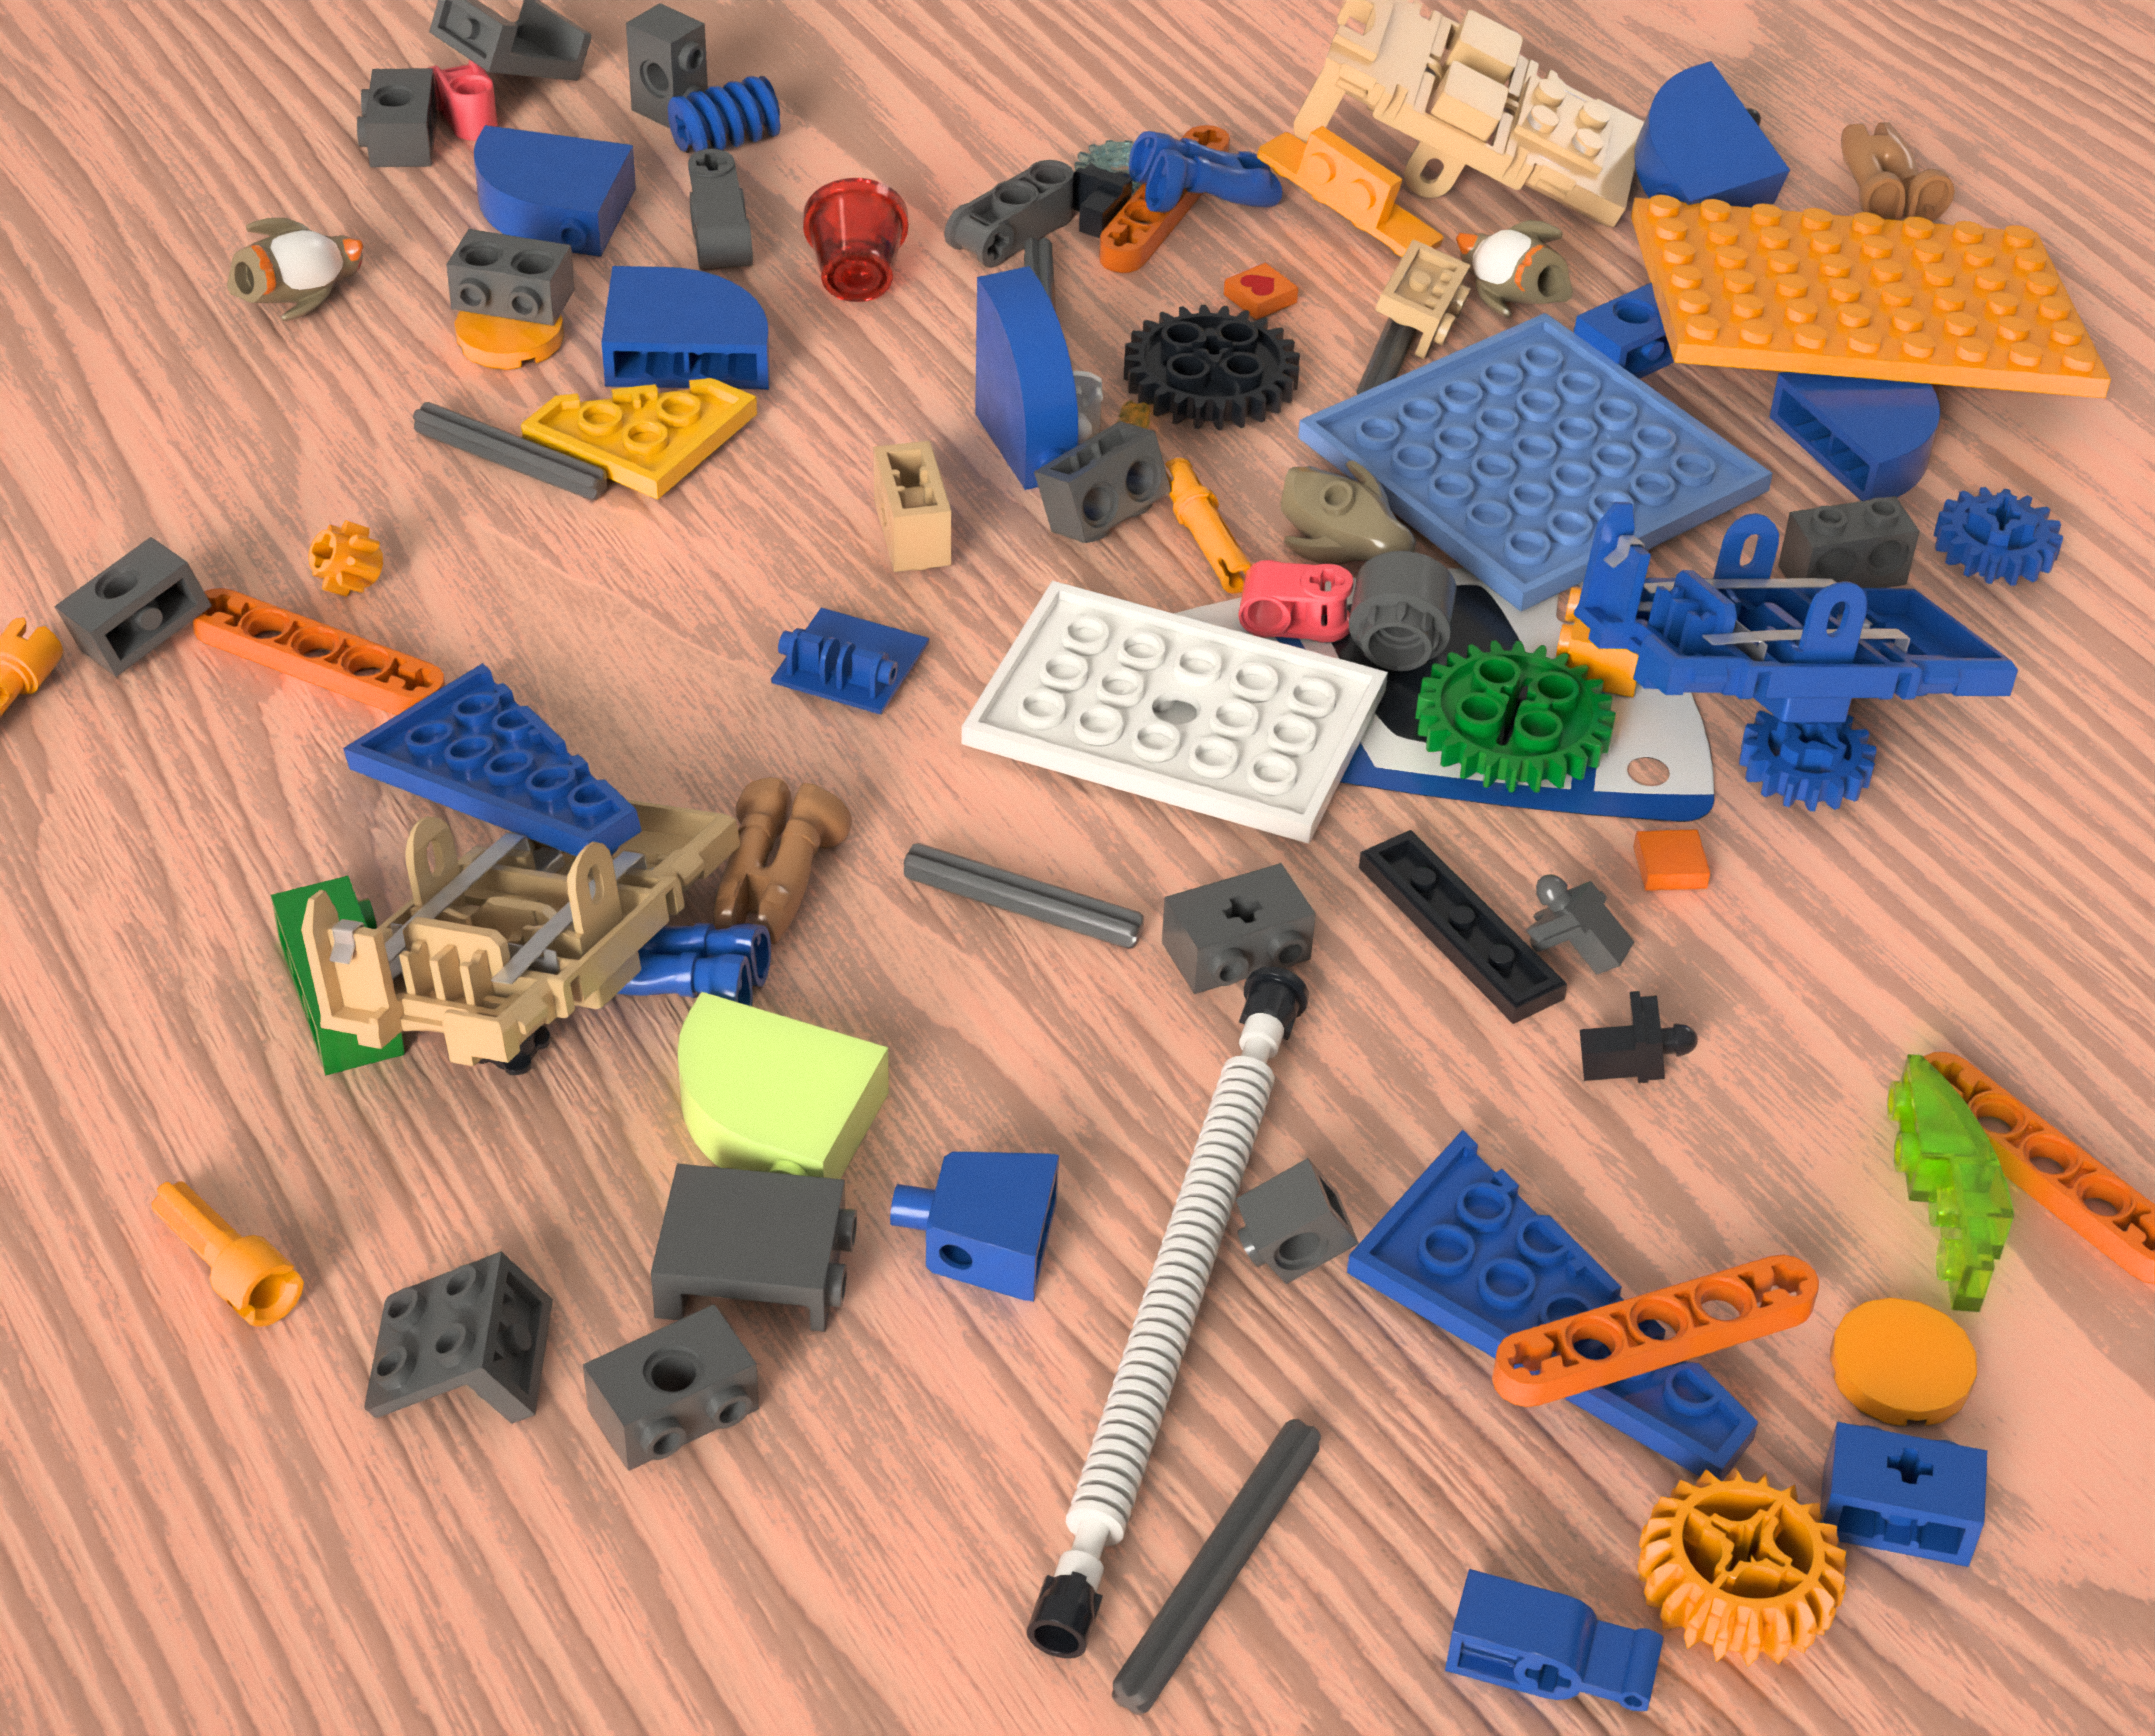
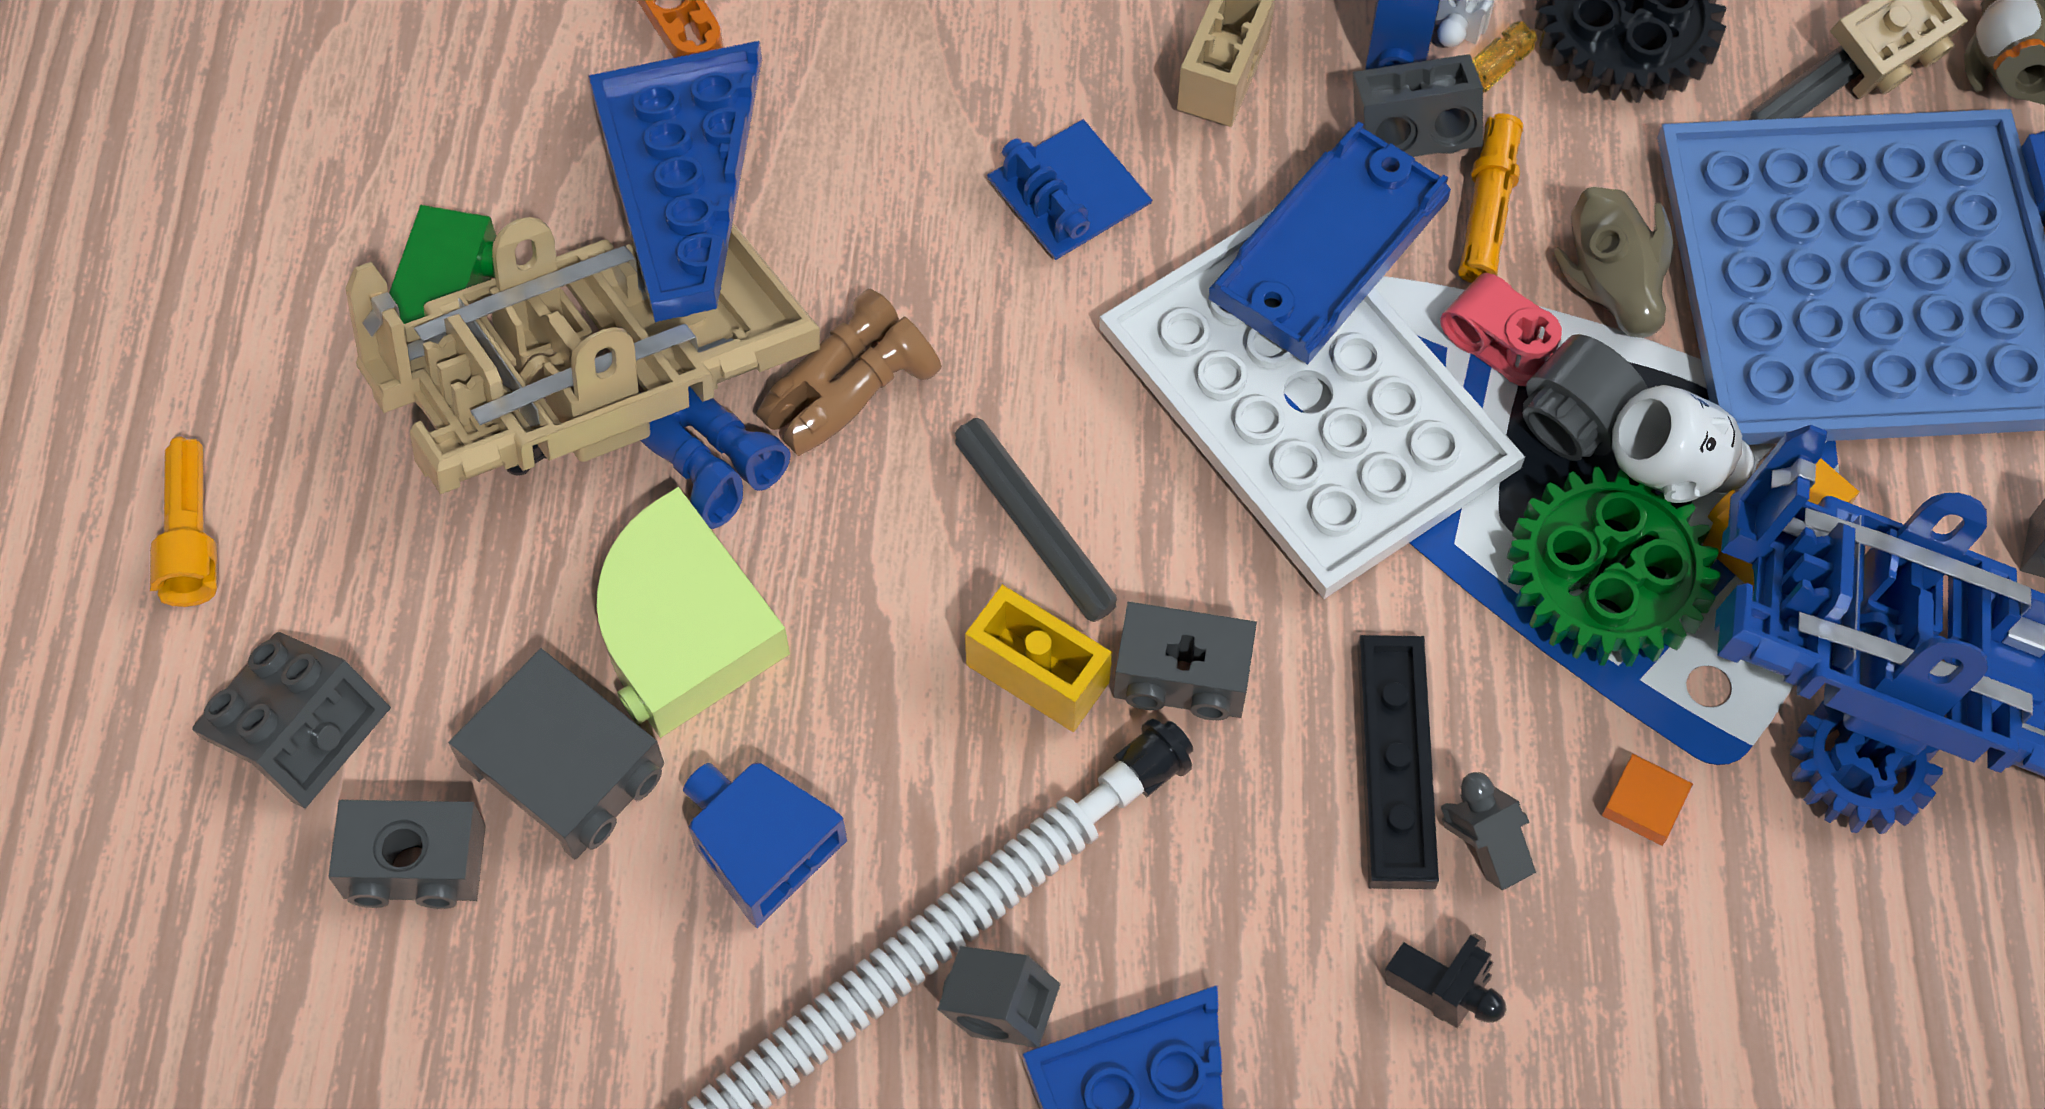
camera: 35 degrees right, 20 degrees up
(1112, 593) = (1330, 242): none -> blue piece
(1122, 974) = (1037, 658): none -> yellow brick
(1504, 598) = (1680, 444): none -> white piece

